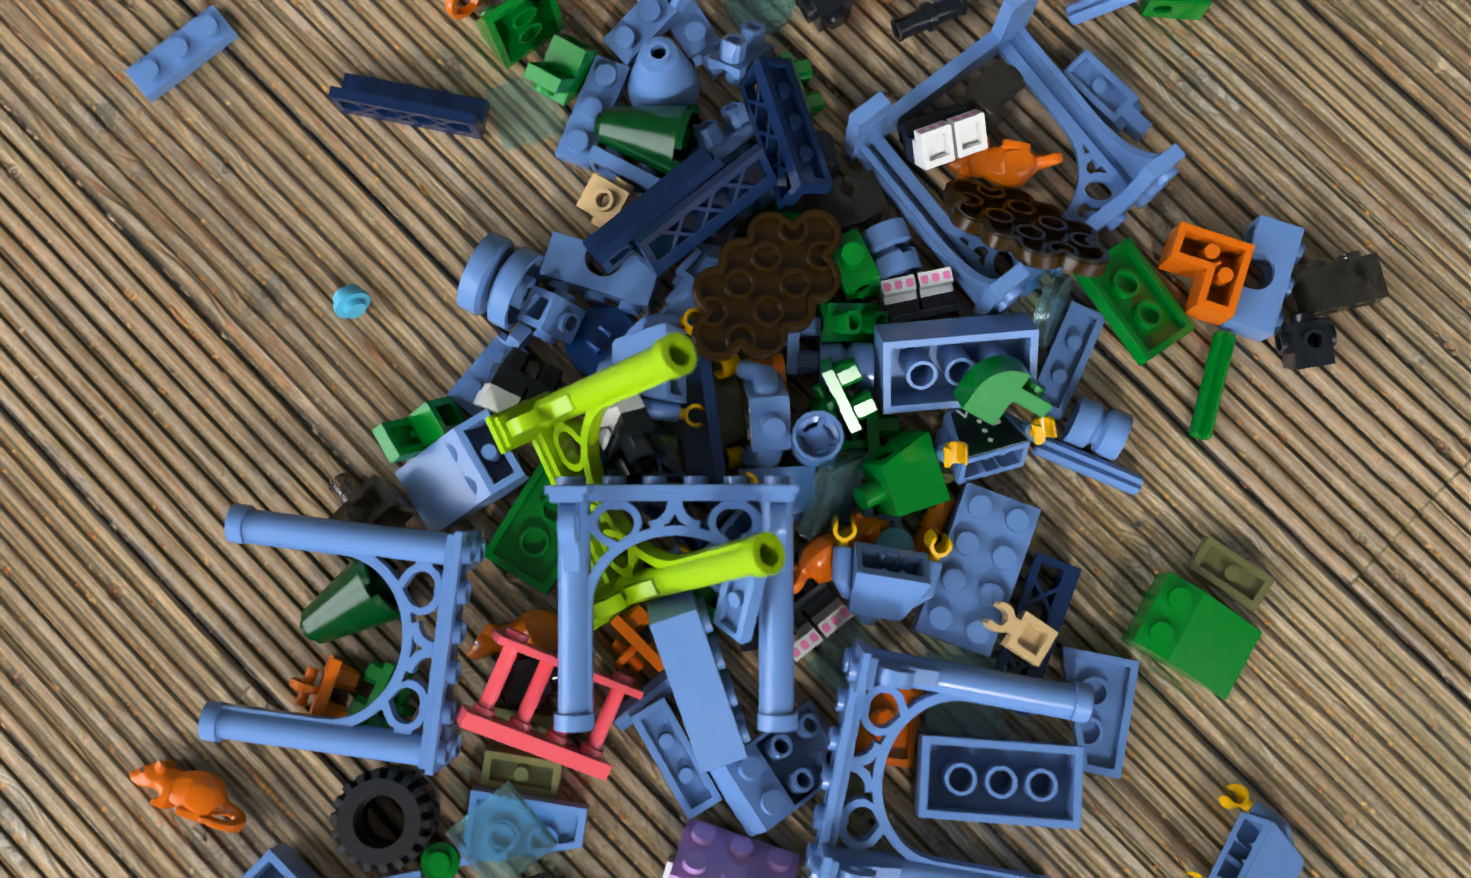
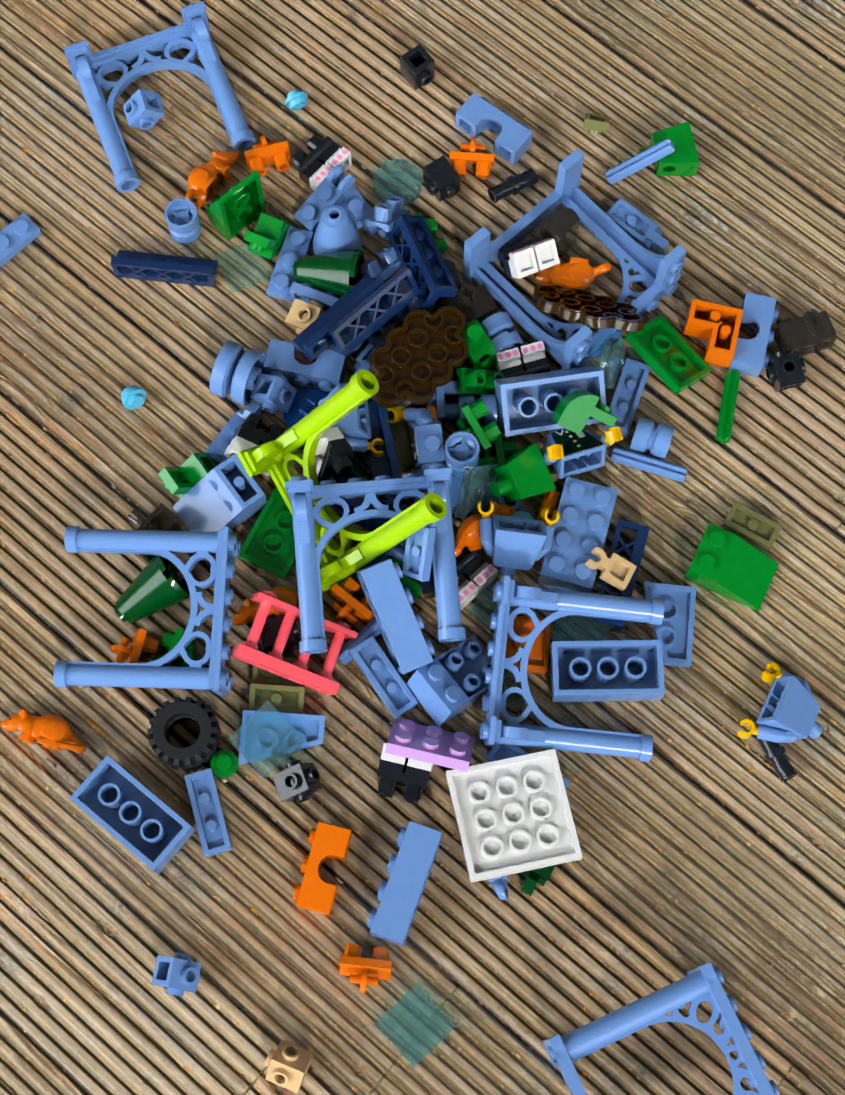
camera: 10 degrees left, 10 degrees down
(440, 35) = (183, 220): none -> medium blue wheel

